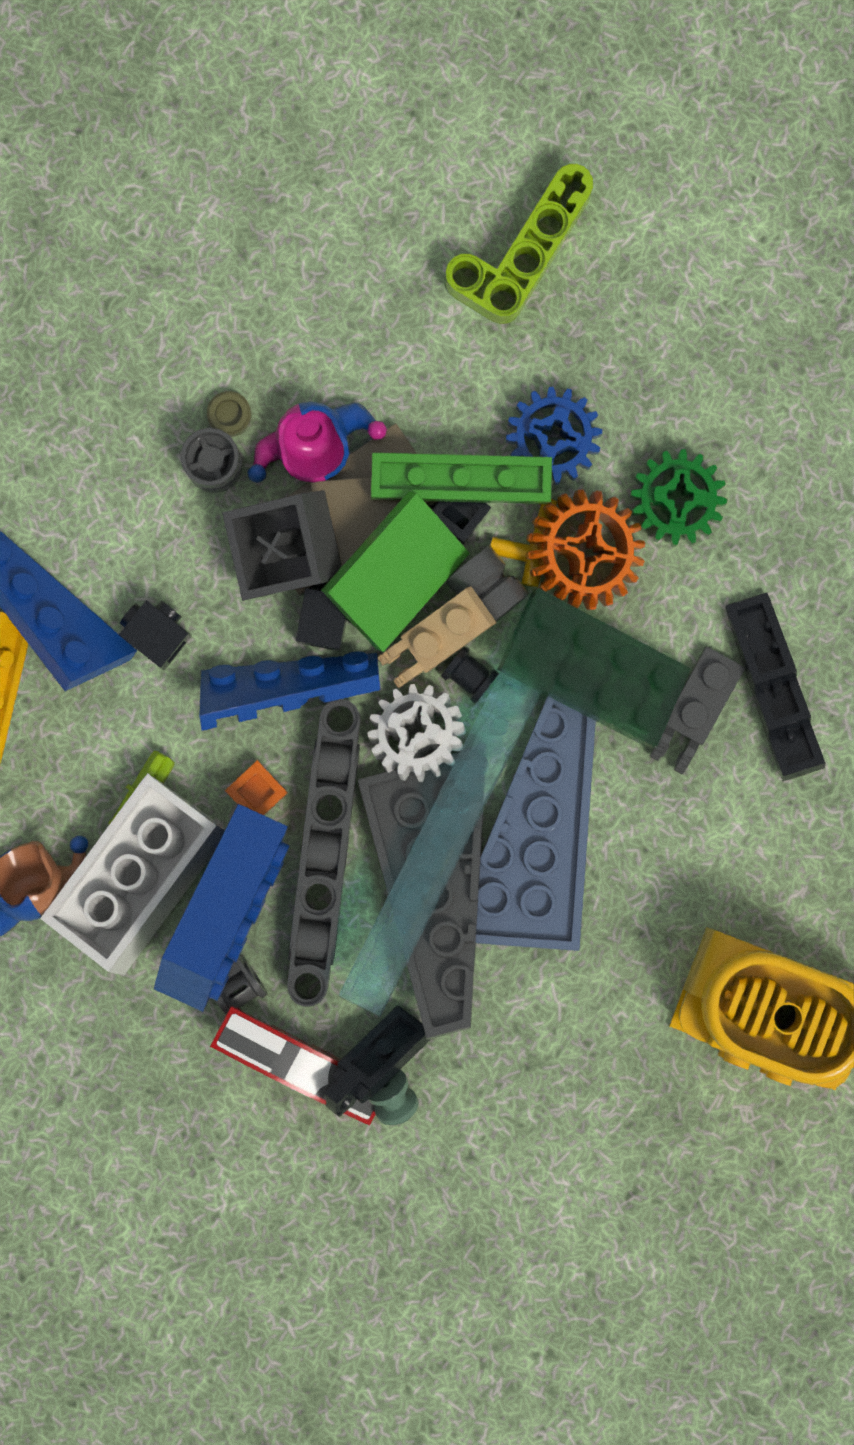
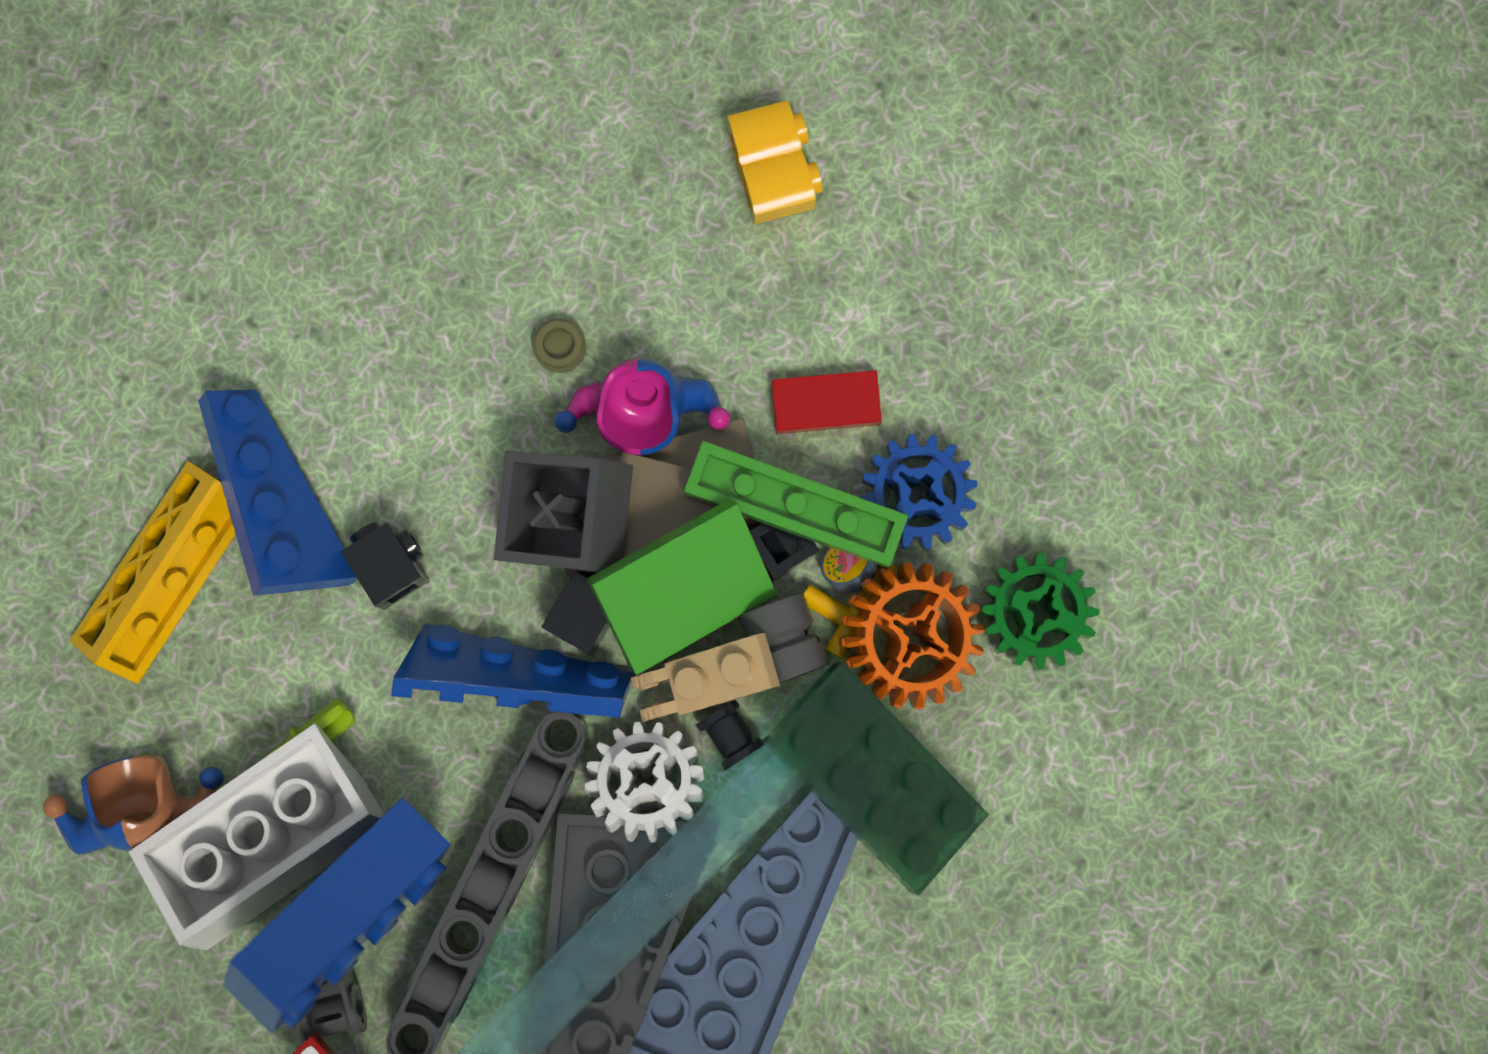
camera: 20 degrees right, 5 degrees down
(211, 460) = (519, 389): dark grey wheel -> none
(256, 789) = (437, 786): orange plate -> none
(349, 208) = (773, 162): none -> yellow brick
(457, 388) = (826, 402): none -> red tile
(517, 517) = (845, 571): none -> tile
(529, 241) = (962, 265): lime beam -> none
(699, 704) = (985, 861): dark grey hinge -> none
(775, 686) = (1080, 870): black slope -> none

